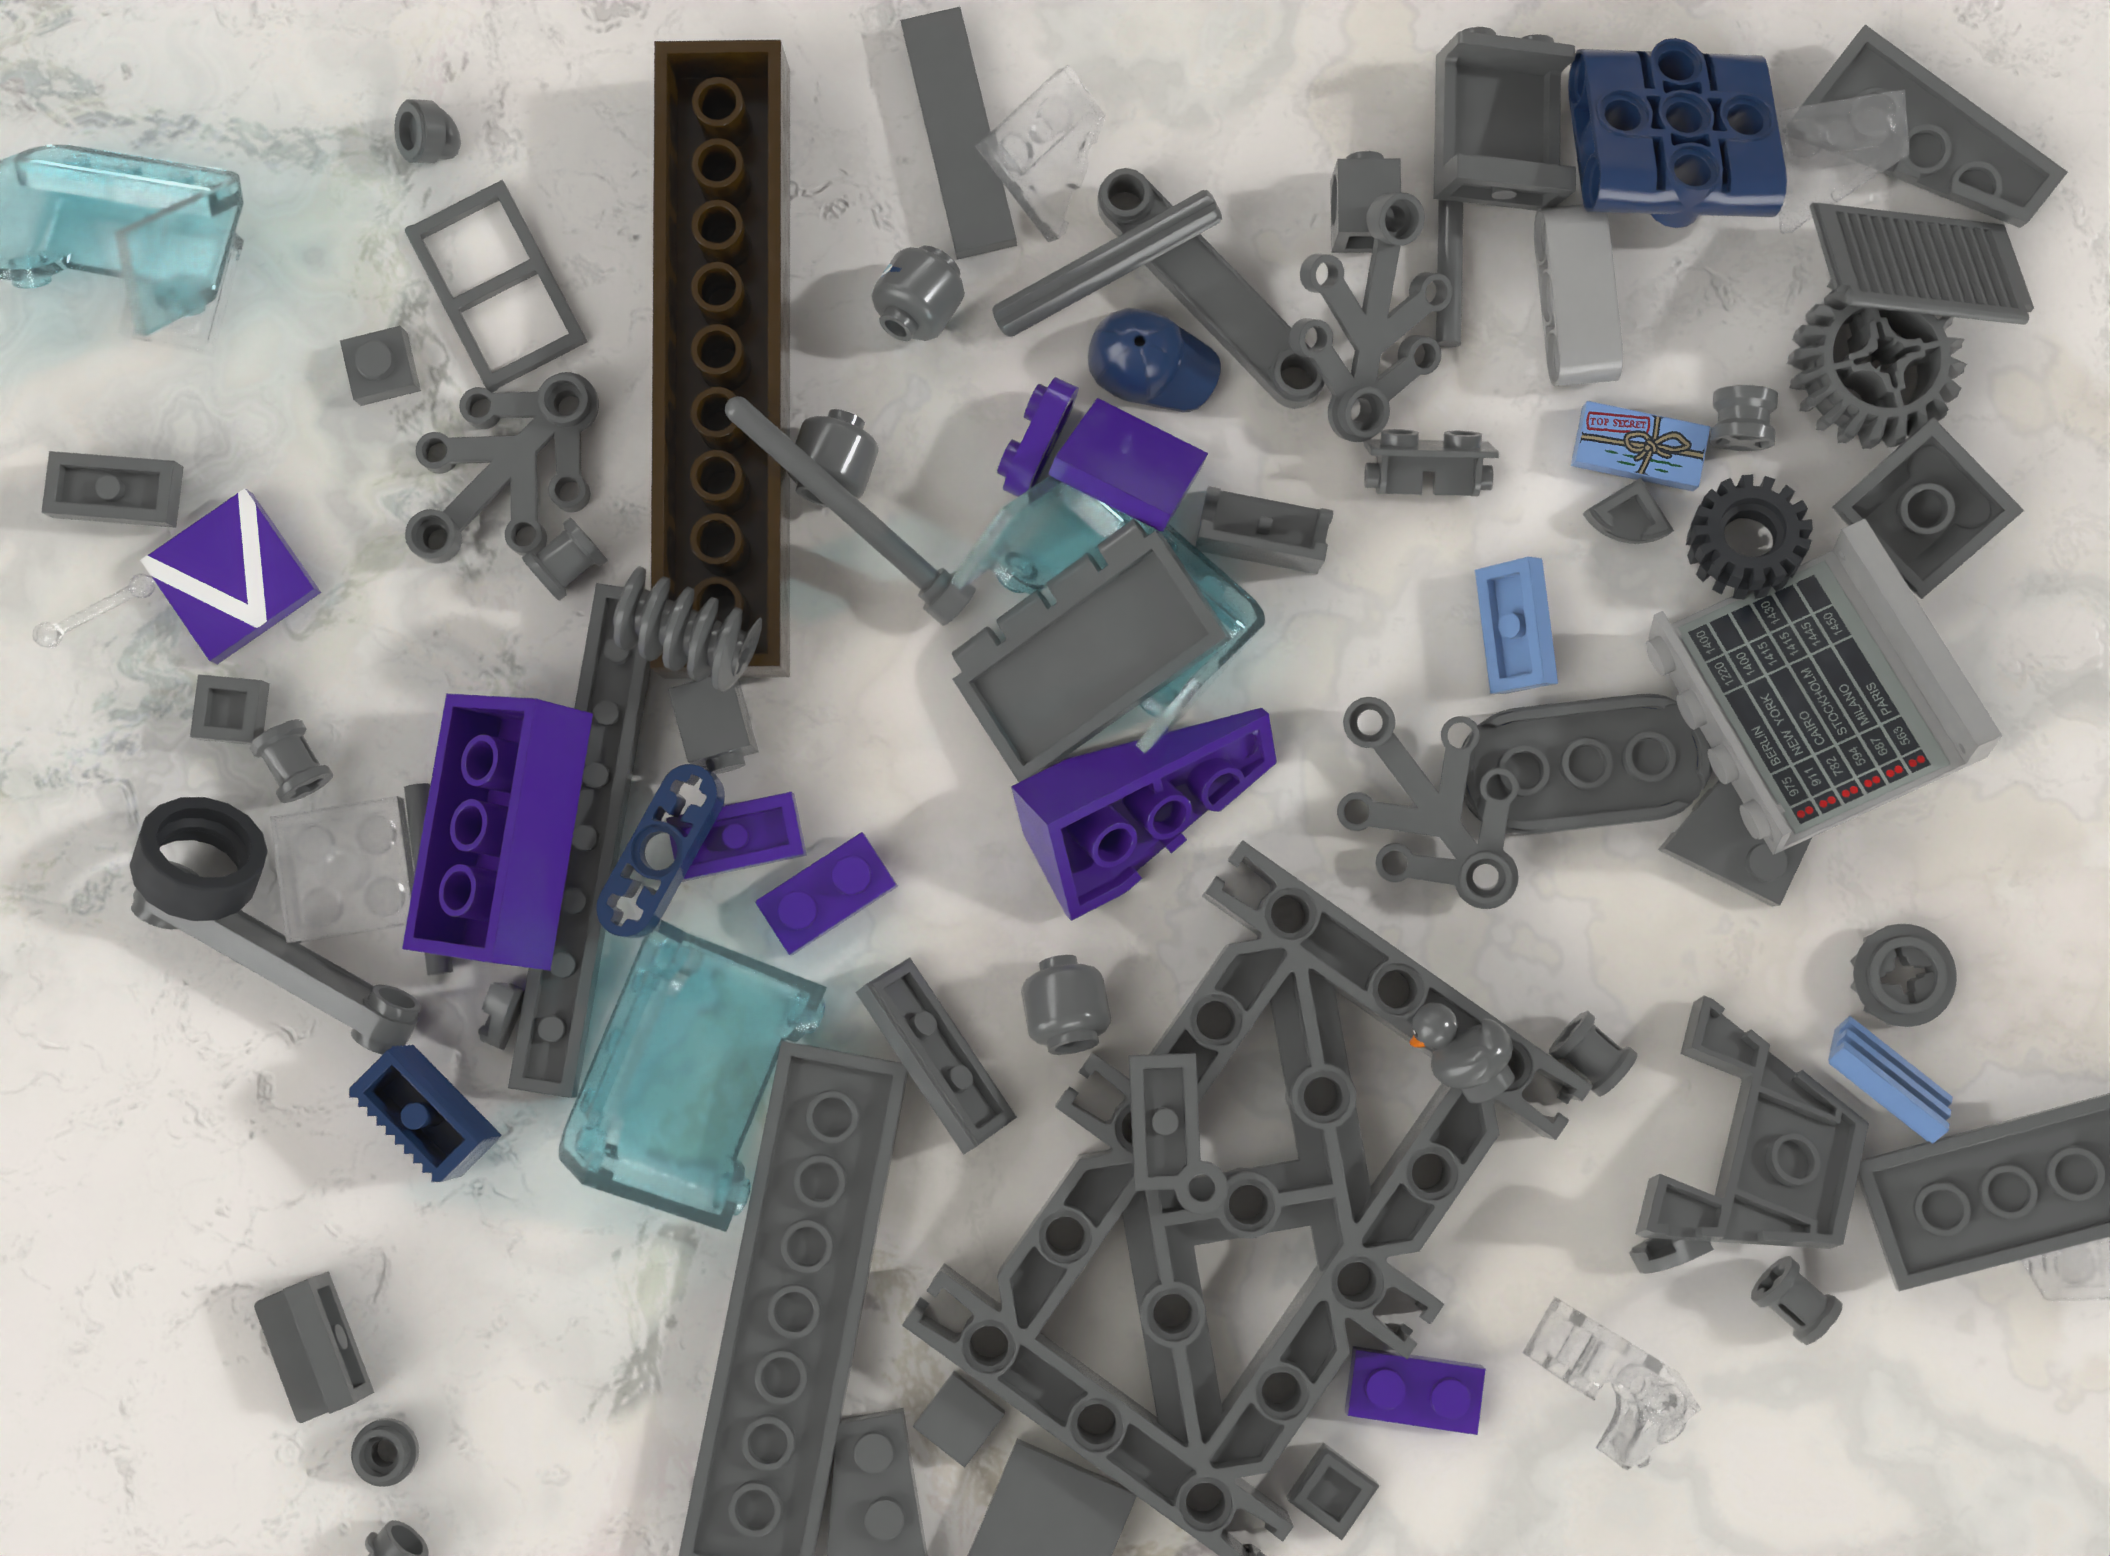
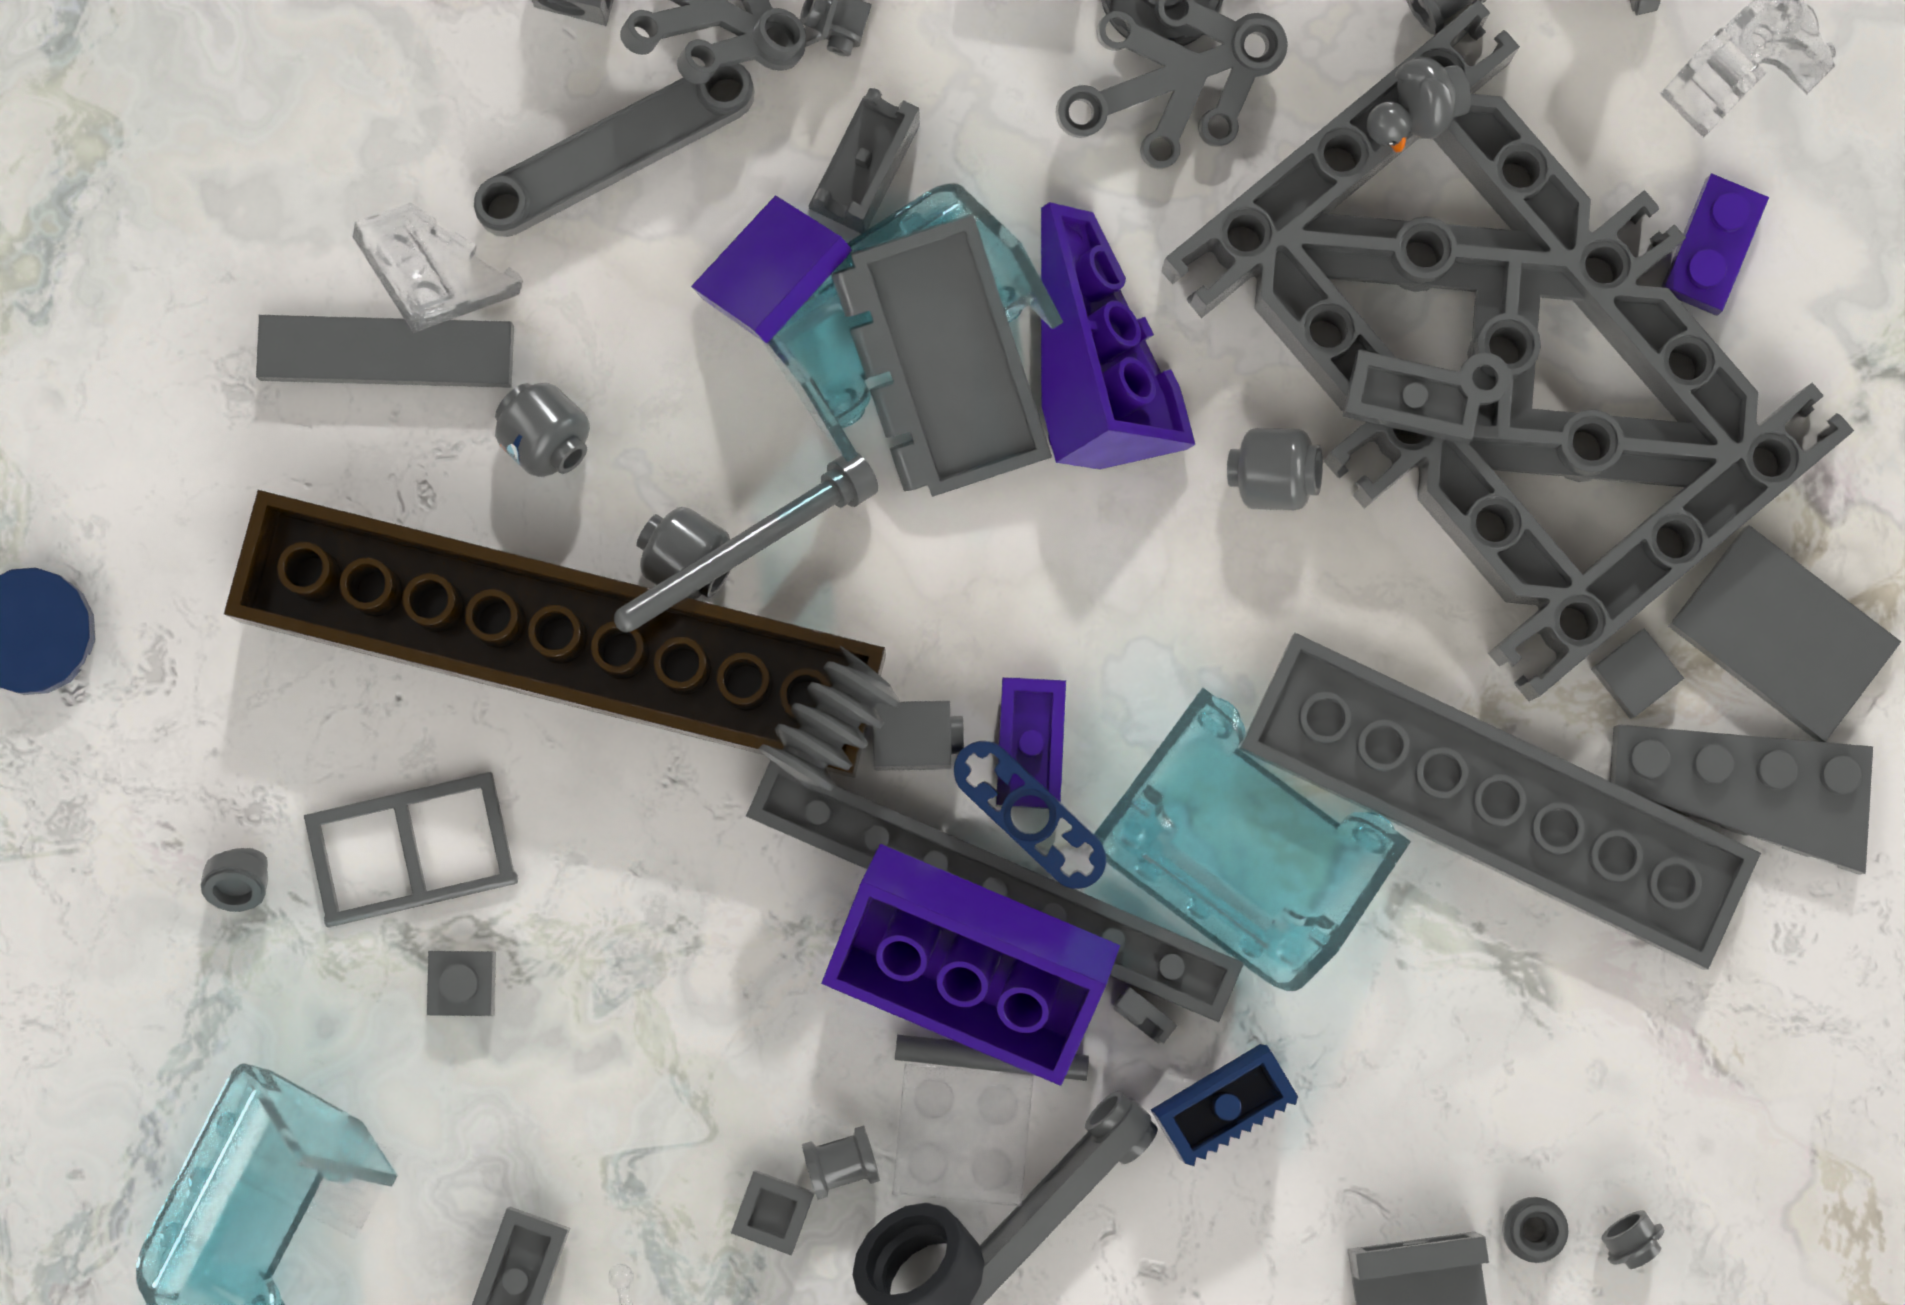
camera: 80 degrees left, 0 degrees up
(230, 576) = (635, 1183): dark purple tile -> none
(511, 461) = (594, 874): dark grey plant -> none
(564, 559) = (711, 843): dark grey bush -> none
(826, 894) = (1107, 672): dark purple plate -> none
(936, 1055) = (1291, 604): dark grey tile -> none
(1048, 412) = (696, 335): dark purple plate -> none
(1107, 263) = (565, 238): dark grey axle -> none
(1165, 373) = (688, 207): dark blue cap -> none
(1332, 1491) = (1787, 345): dark grey tile -> none

